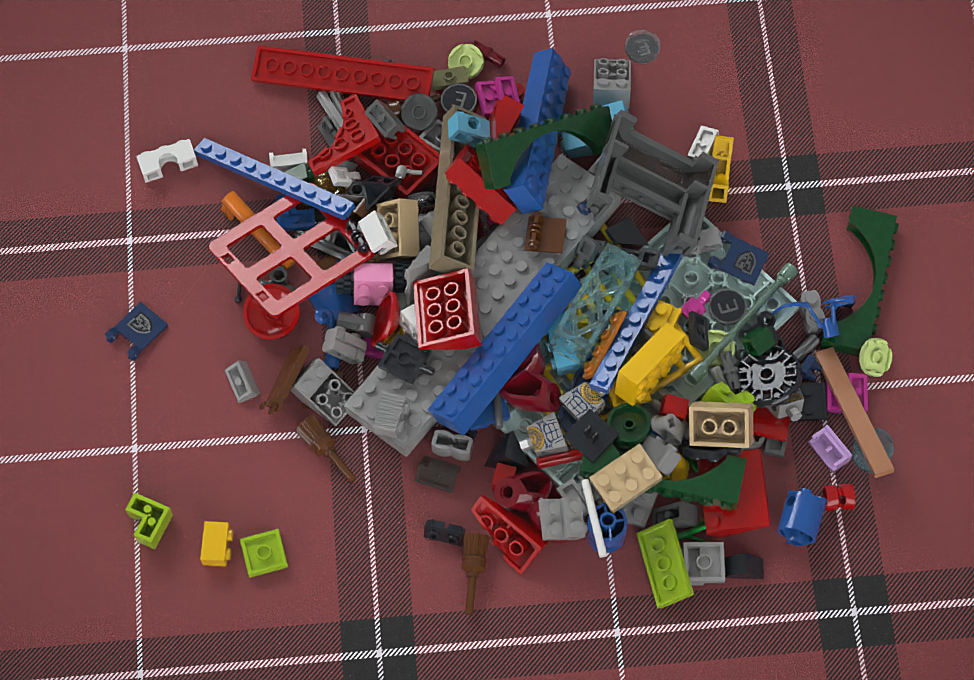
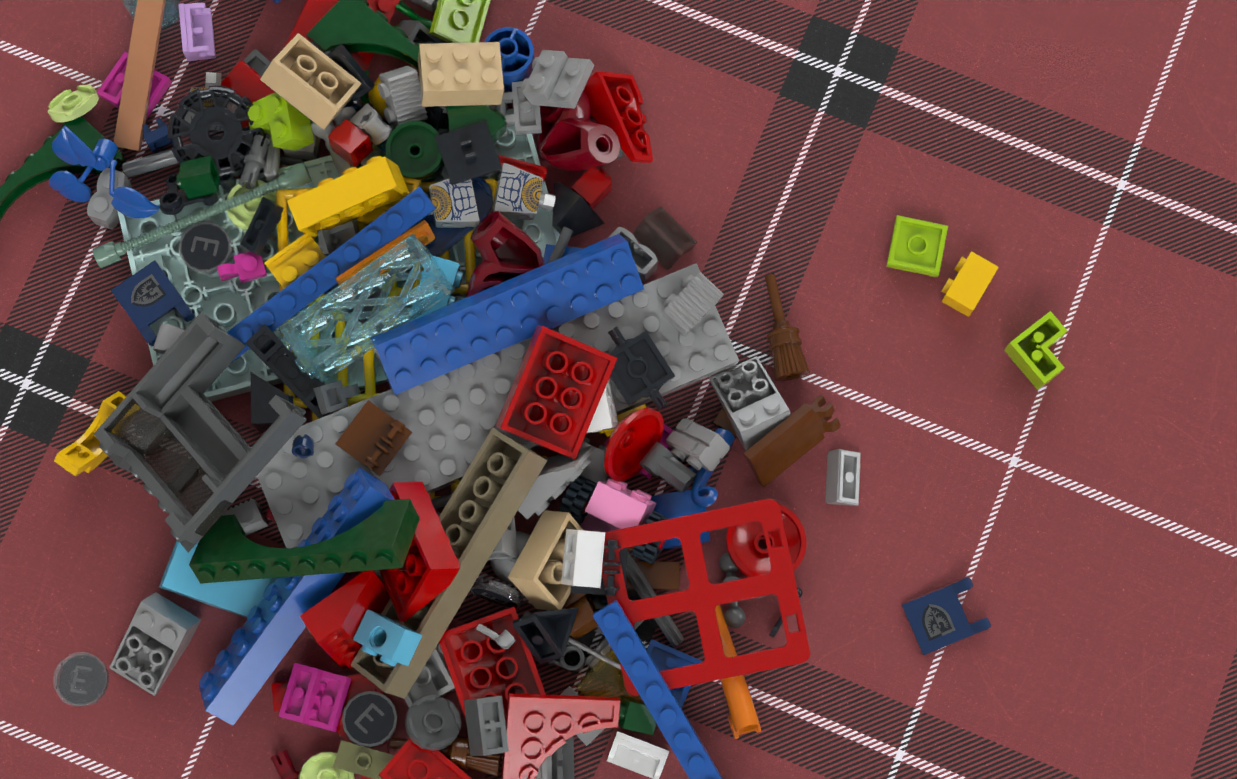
camera: 155 degrees left, 10 degrees up
(341, 176) = (583, 680): white plate -> none
(435, 531) = (686, 157): black hinge -> none
(473, 563) = (680, 107): reddish brown piece -> none
(594, 518) = (521, 60): white bar -> none
(703, 142) = (95, 484): white hinge -> none
(814, 401) = (174, 91): black plate -> none

